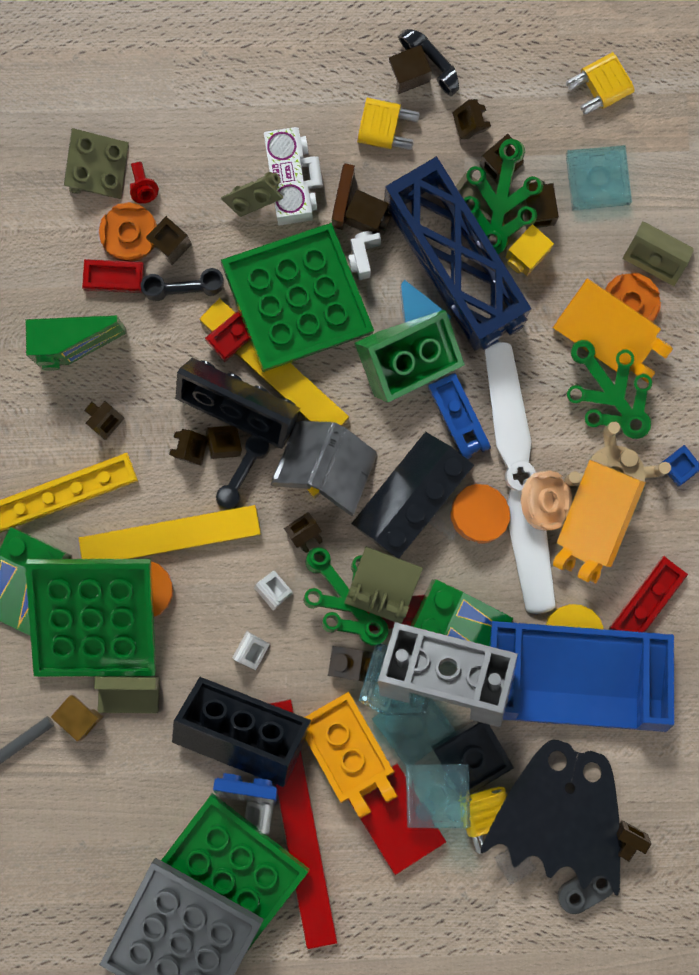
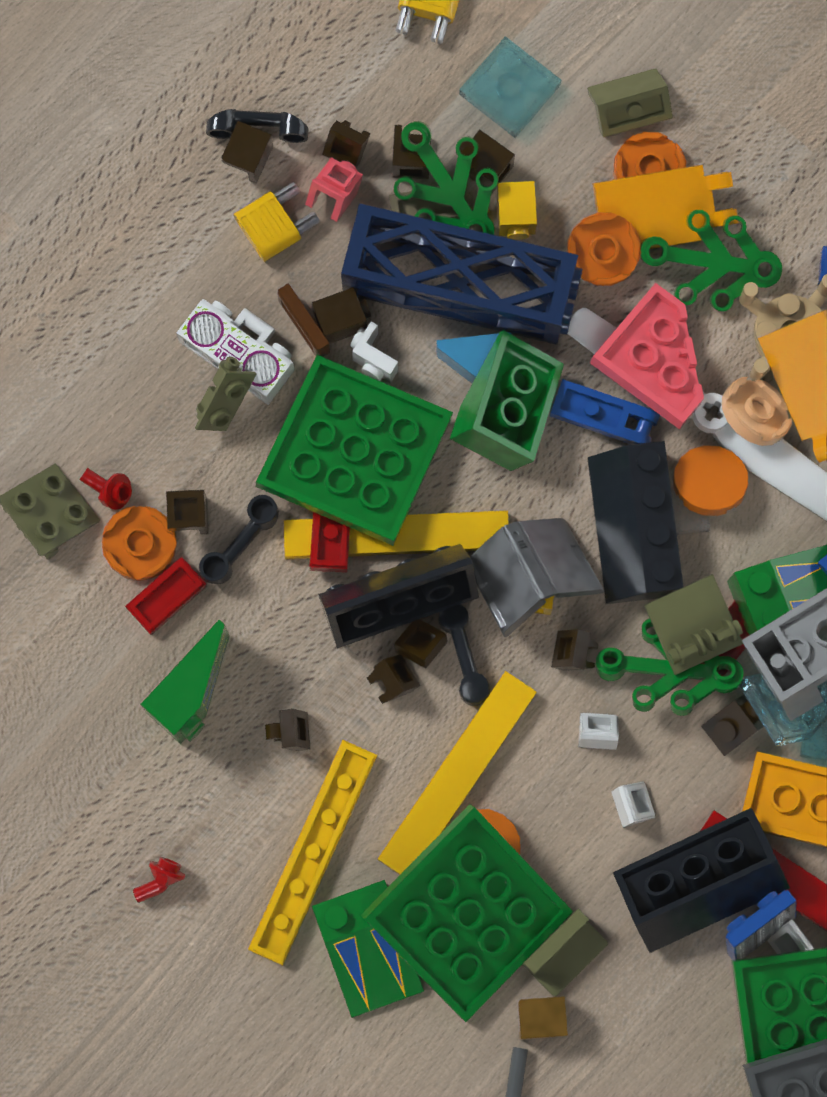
camera: 45 degrees left, 5 degrees down
(442, 135) = (338, 181): none -> coral window
(519, 411) = (655, 357): none -> coral plate
(555, 322) = (605, 248): none -> orange tile

